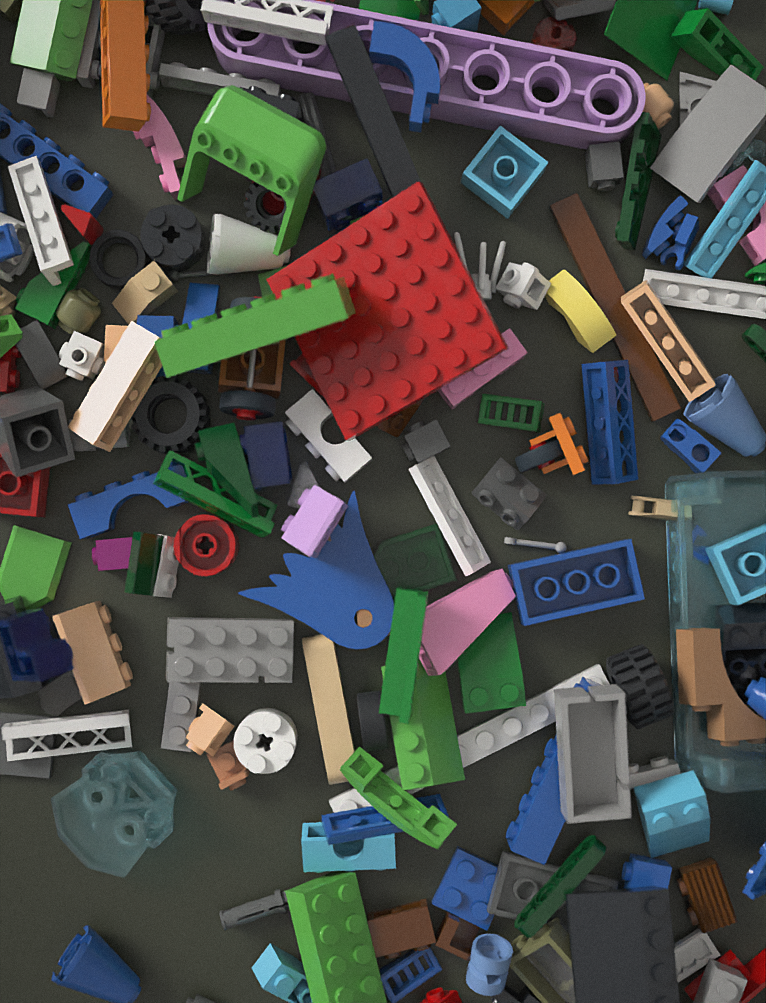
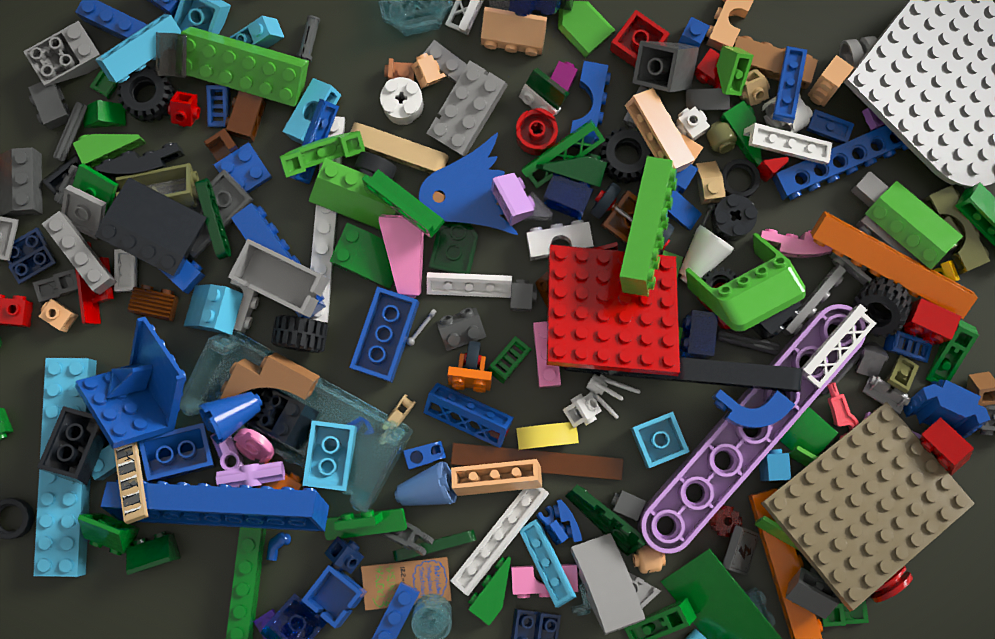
camera: 125 degrees right, 5 degrees down
(489, 964) = (194, 151): medium blue wheel -> none

